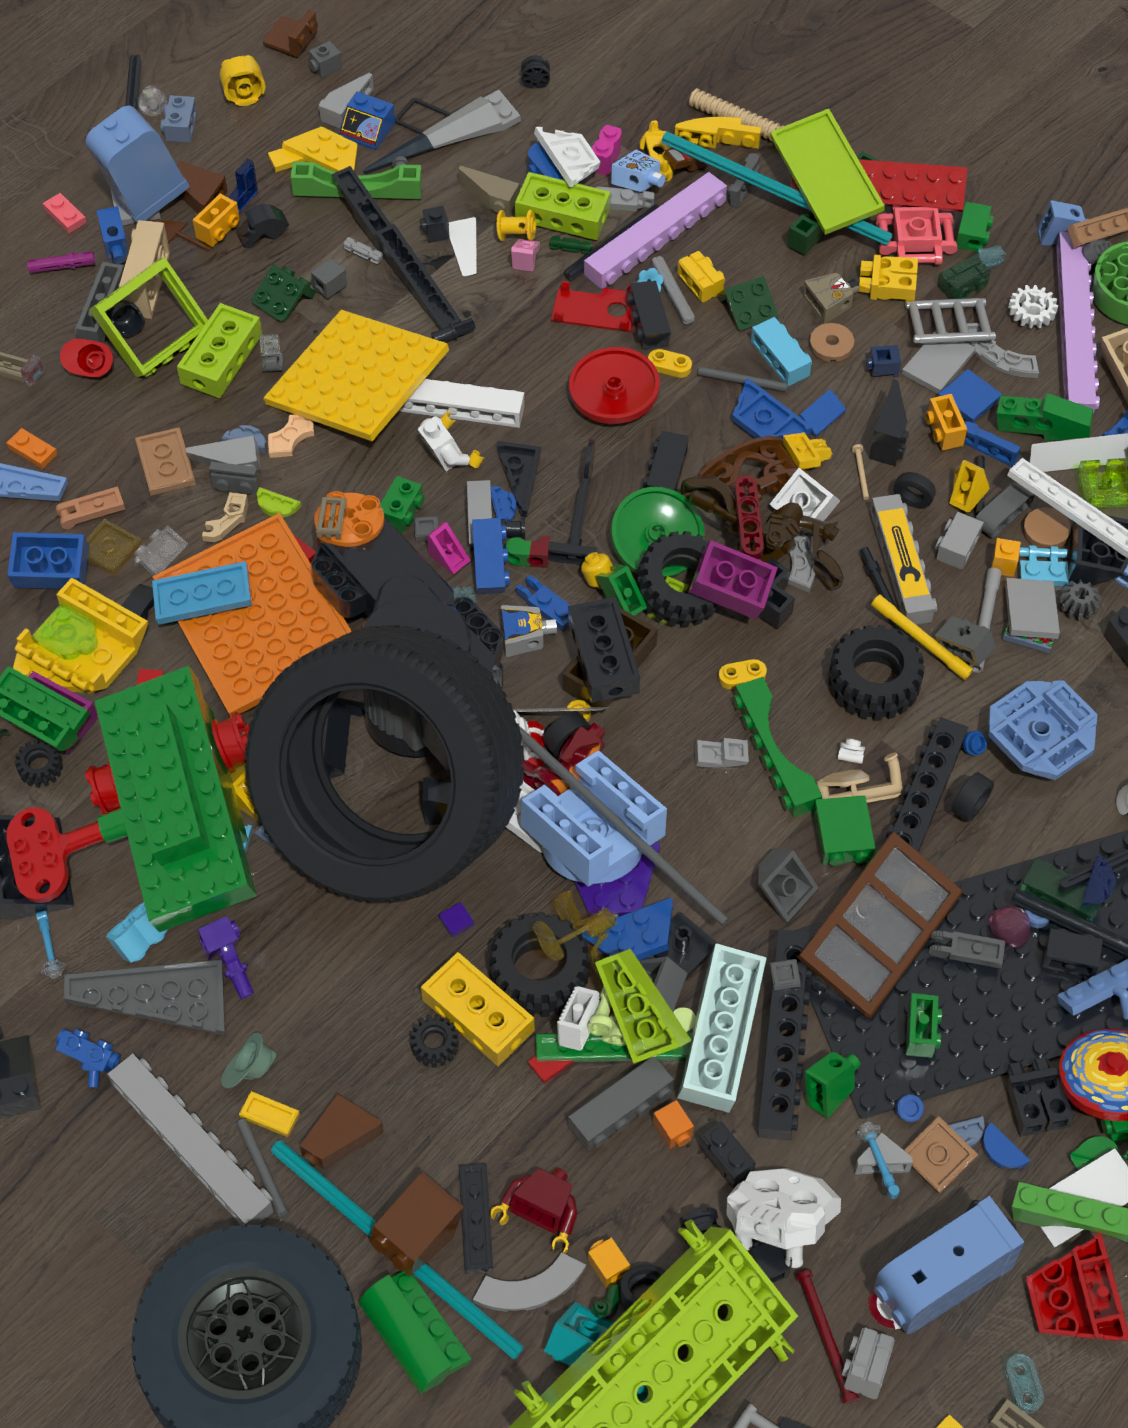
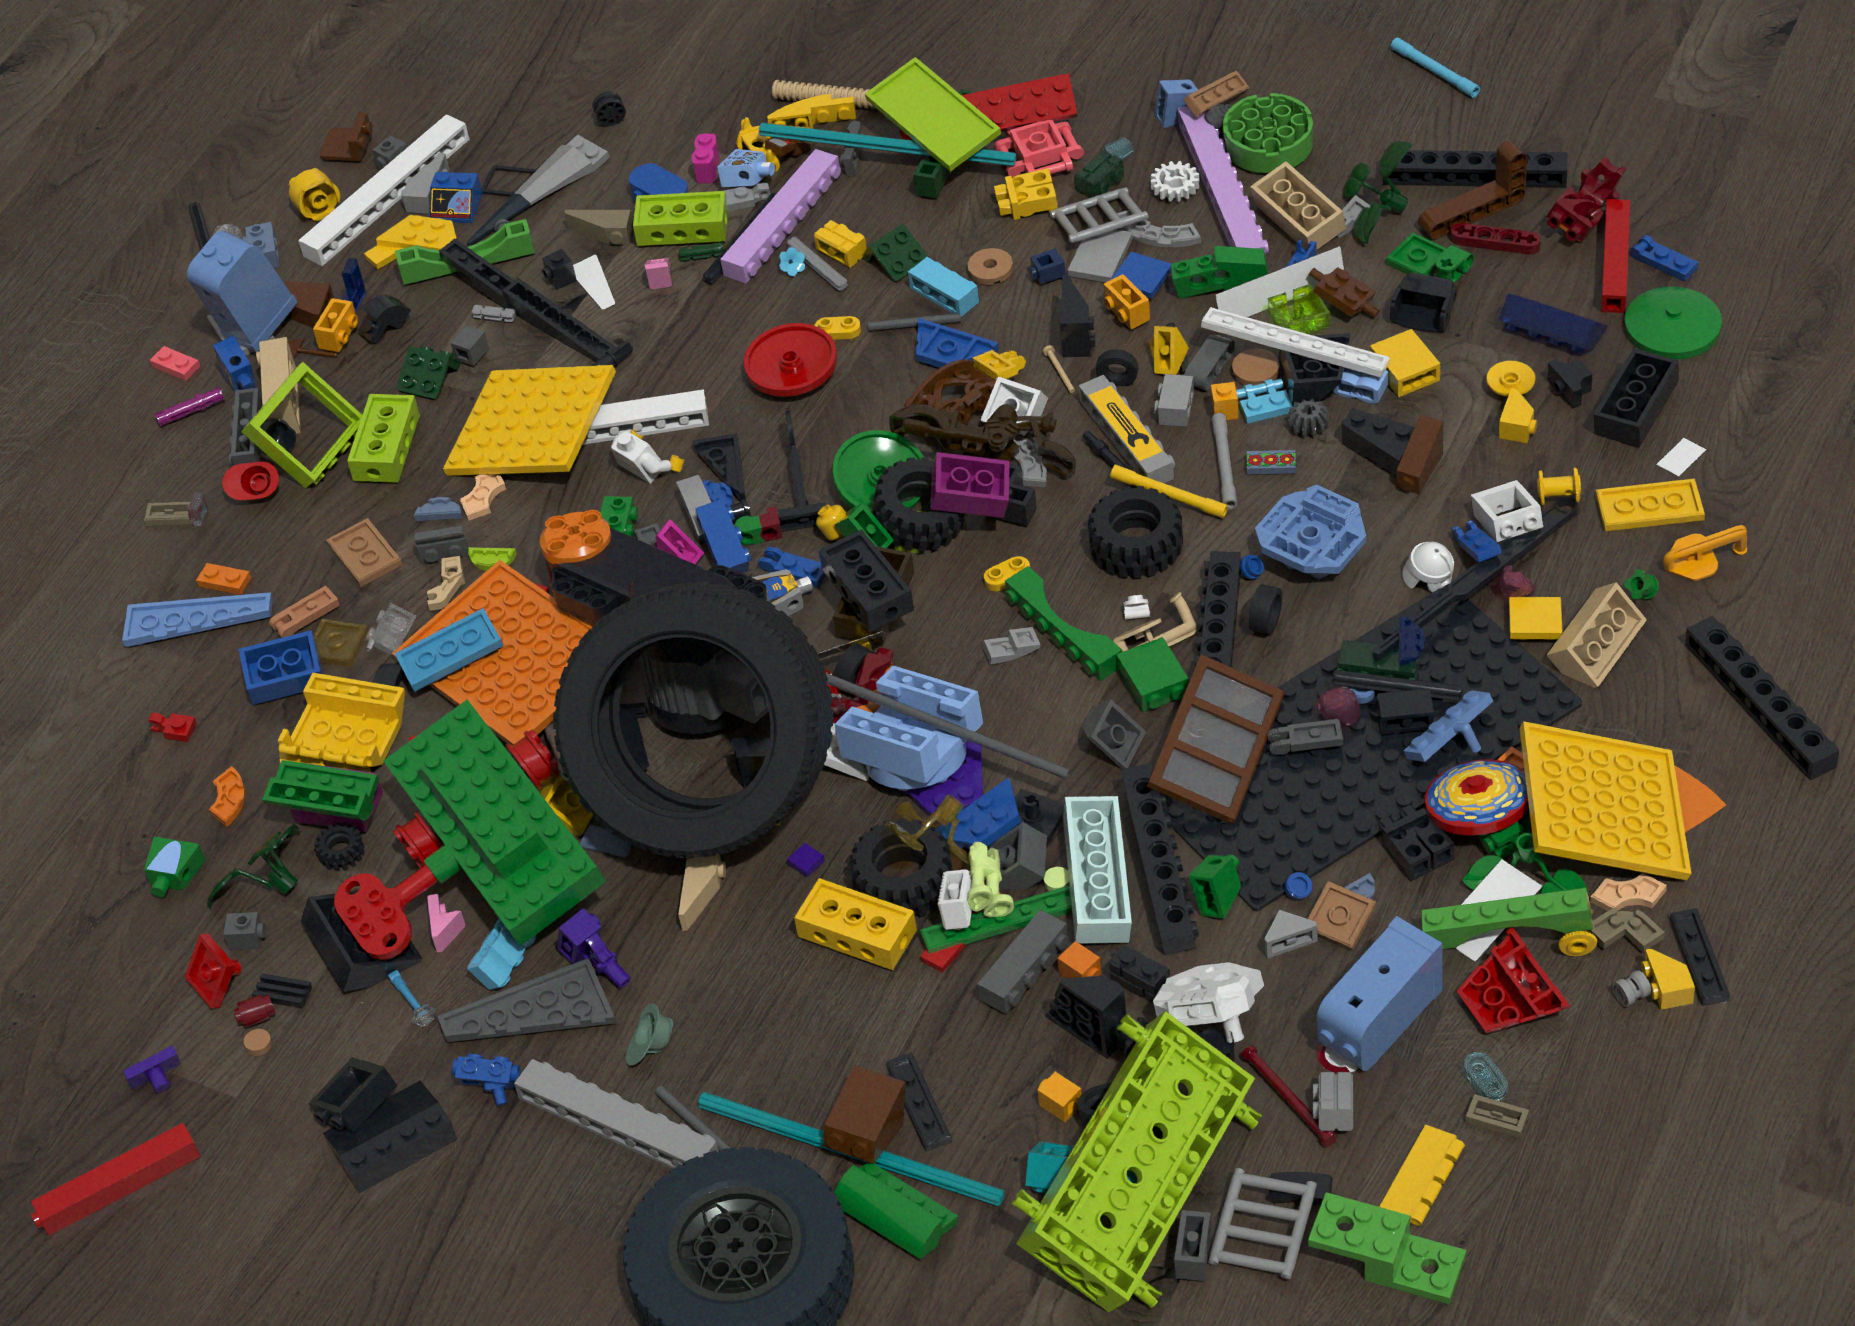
camera: 10 degrees left, 10 degrees down
(67, 633) = (325, 725): clear neon green plate -> none
(102, 878) = (444, 925): none -> bright pink slope
(235, 451) = (434, 518): light grey slope -> none
(269, 1114) = (685, 1075): yellow tile -> none
(271, 352) = (436, 425): leg -> none
(304, 94) = (381, 191): none -> white brick
(330, 530) = (561, 547): dark tan tile -> none
(339, 1133) = (761, 1067): reddish brown slope -> none
(344, 921) = (700, 884): none -> tan slope
(429, 1027) = (818, 954): black tyre -> none
(514, 225) = (638, 248): yellow hose -> none
(532, 1292) = (994, 1146): light grey tile -> none
(542, 1200) = (978, 1063): dark red torso -> none
(569, 154) = (671, 169): white wing -> none
(591, 308) = (744, 302): red piece -> none
(608, 1305) = (1073, 1131): dark green arm -> none
(639, 1008) = (1015, 871): lime wedge -> none
(648, 314) = (801, 290): black brick -> none
(667, 1187) = (1090, 1011): none -> black wedge
(668, 461) = (867, 407): black brick -> none
(748, 517) = (966, 427): dark red beam -> none
(785, 974) = (1140, 804): dark grey tile -> none
(823, 412) = (1004, 328): blue slope -> none
(829, 295) = (973, 225): dark tan torso -> none
(868, 1132) = (1267, 912): dark azure piece -> none
(922, 1025) = (1286, 810): green brick -> none
(966, 640) = (1212, 480): dark grey brick -> none
(973, 227) = (1093, 127): green brick -> none
(991, 445) = (1176, 310): blue hinge -> none
(1001, 1150) = (1397, 896): blue tile -> none
(1032, 608) = (1265, 438): light grey tile -> none

